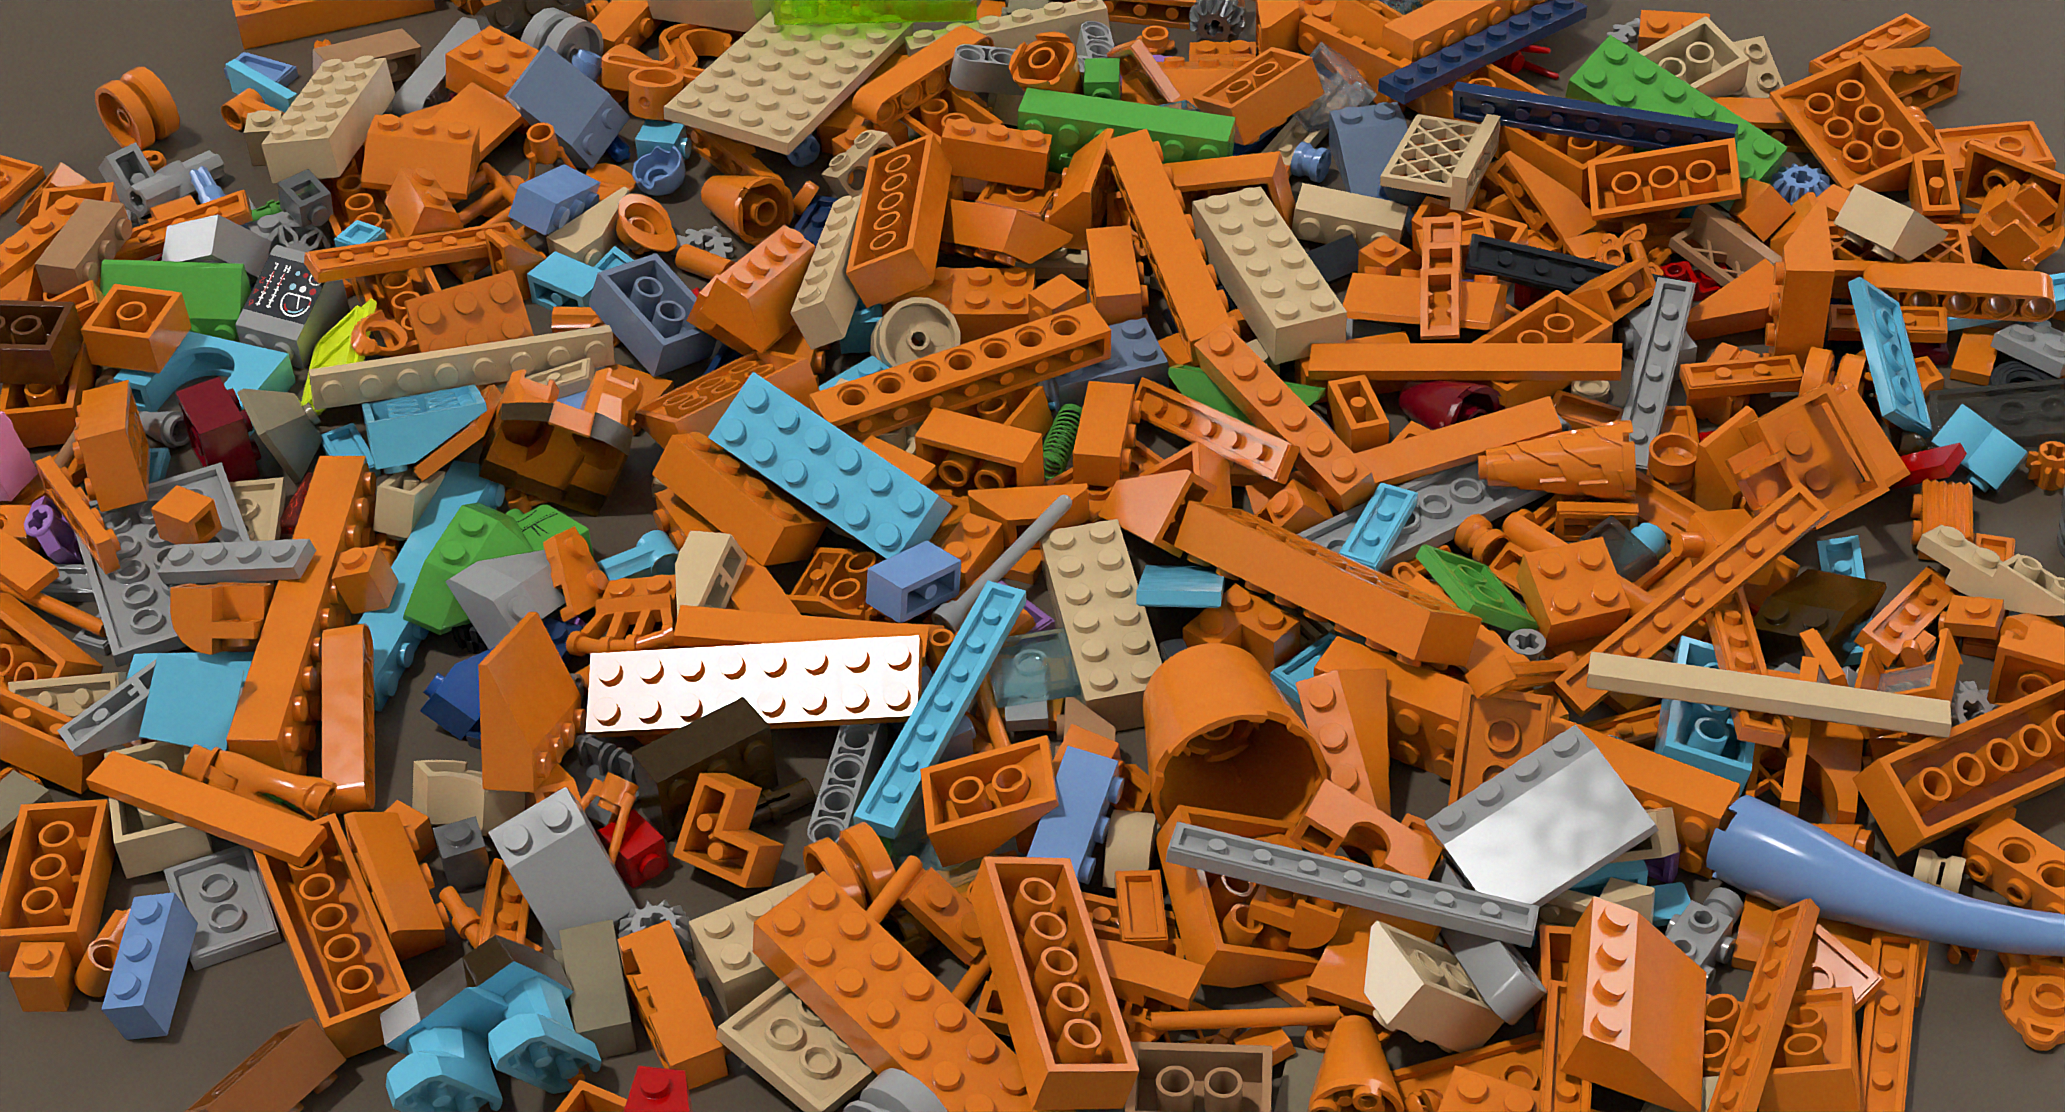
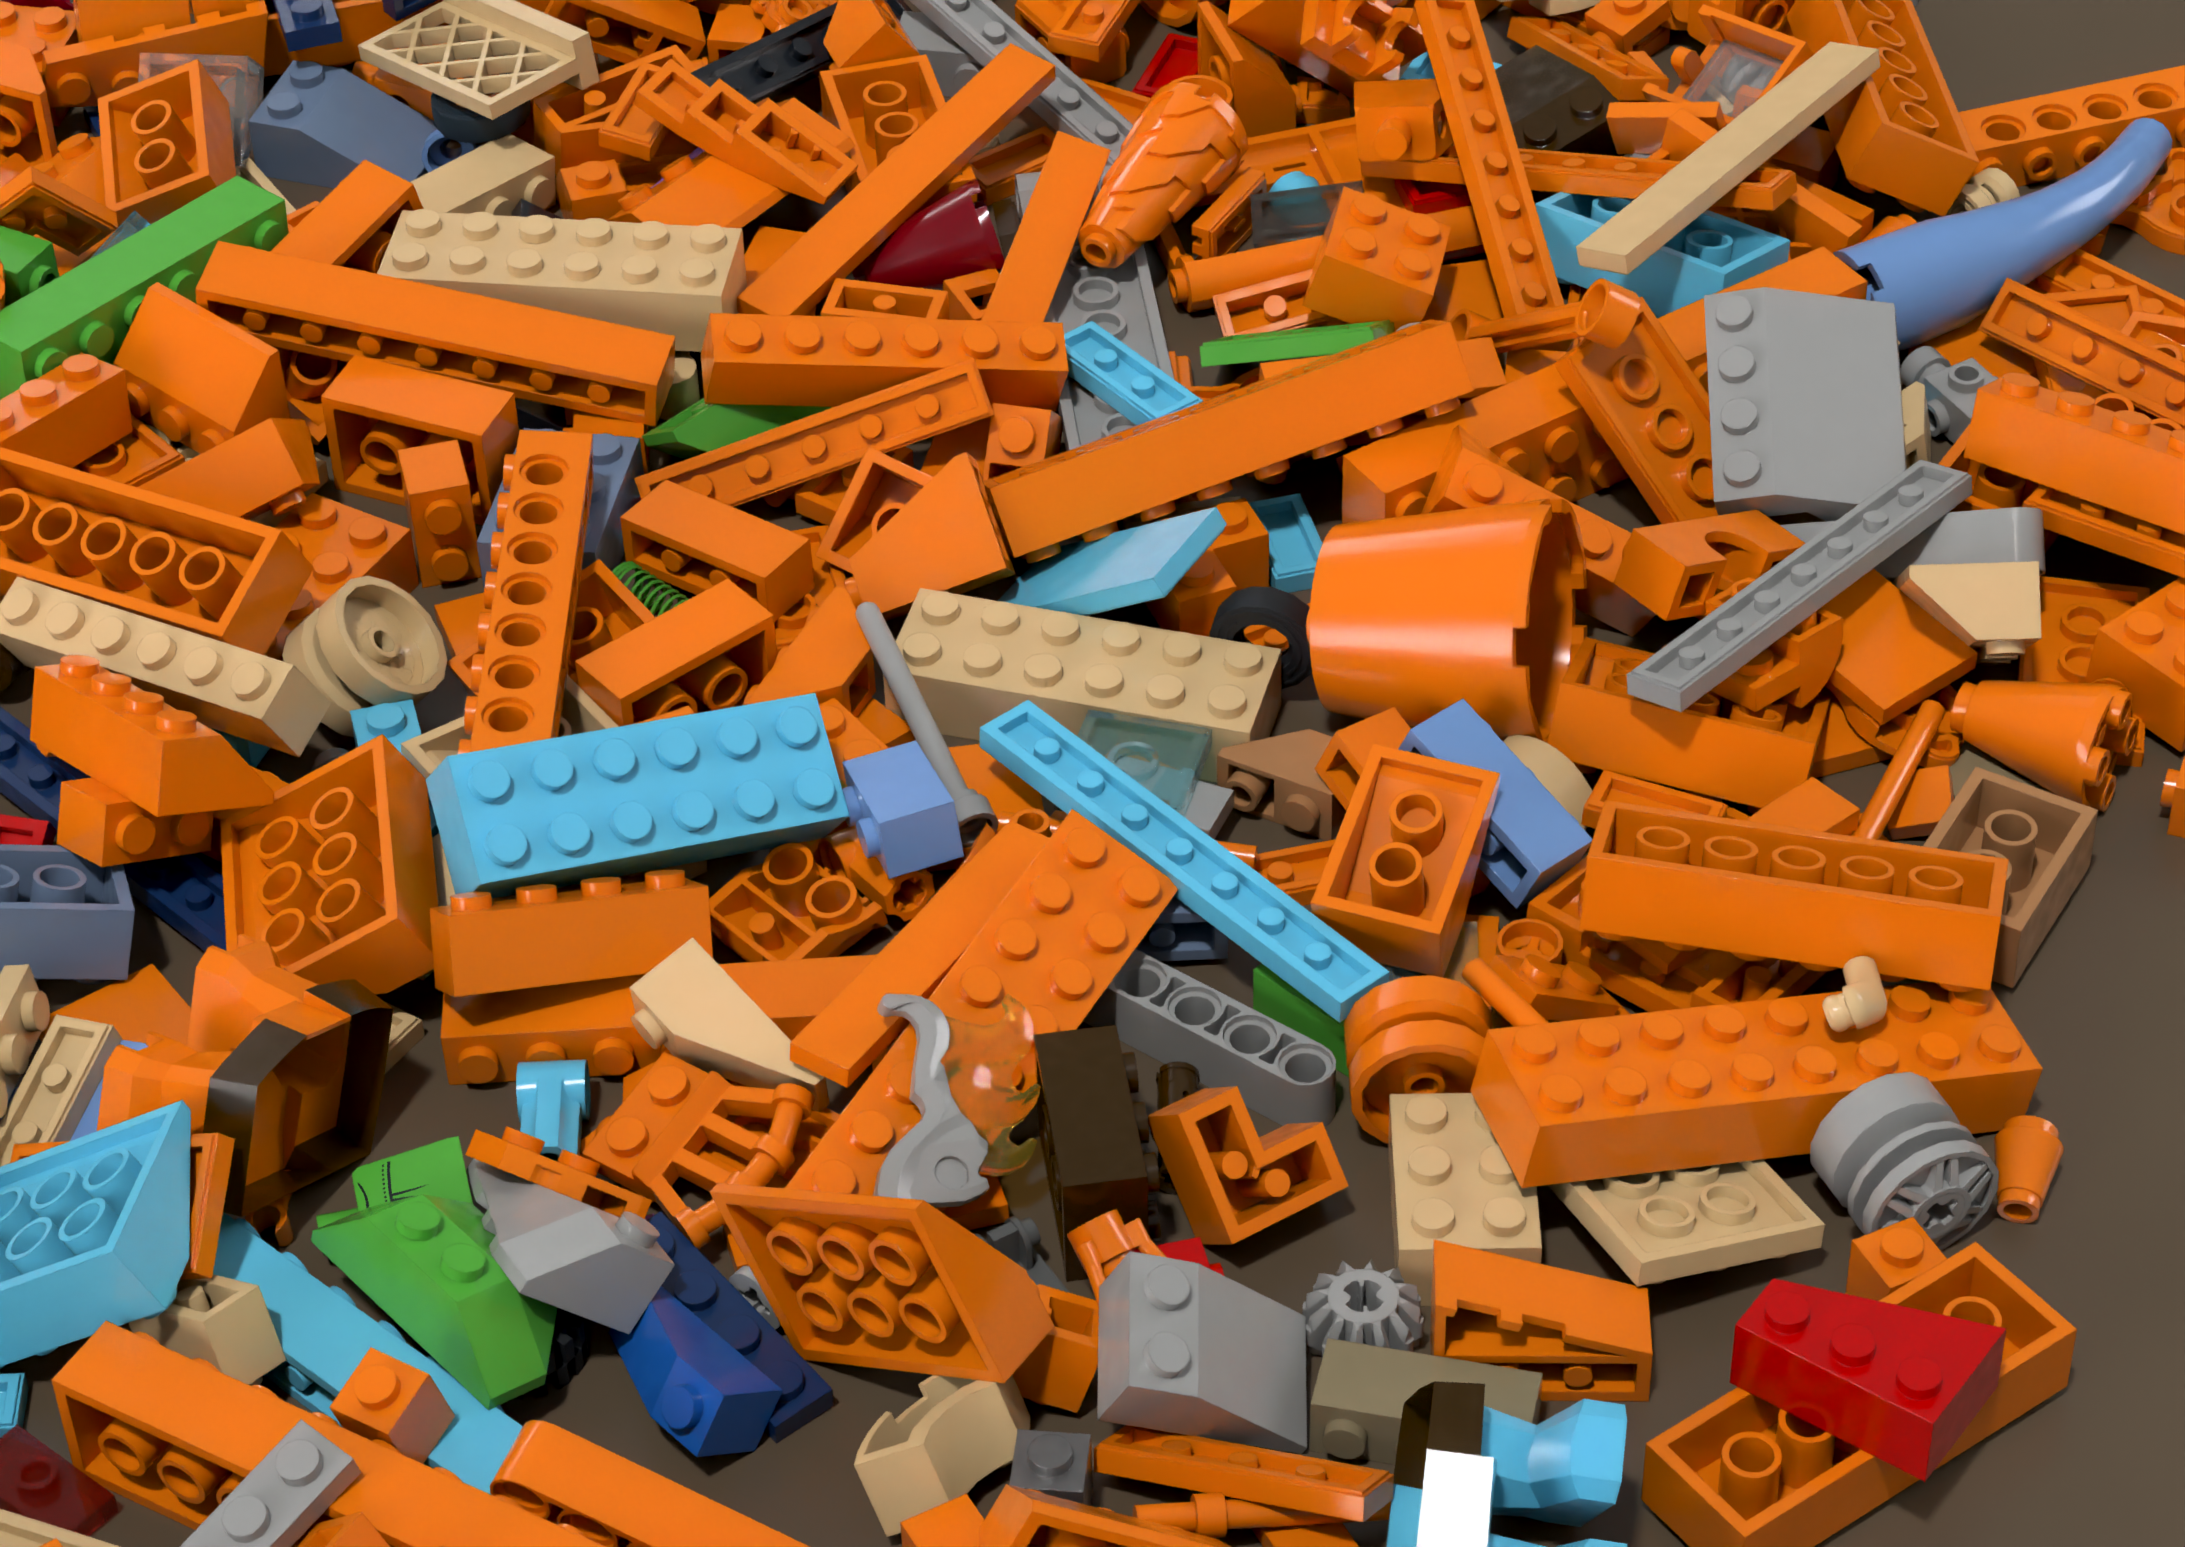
camera: 65 degrees left, 0 degrees up
(689, 693) = (964, 1104): none -> piece
(973, 1045) = (1861, 1000): none -> tan arm
(1311, 162) = (303, 185): medium blue wheel -> none
(1478, 537) = (1189, 319): orange wheel -> none

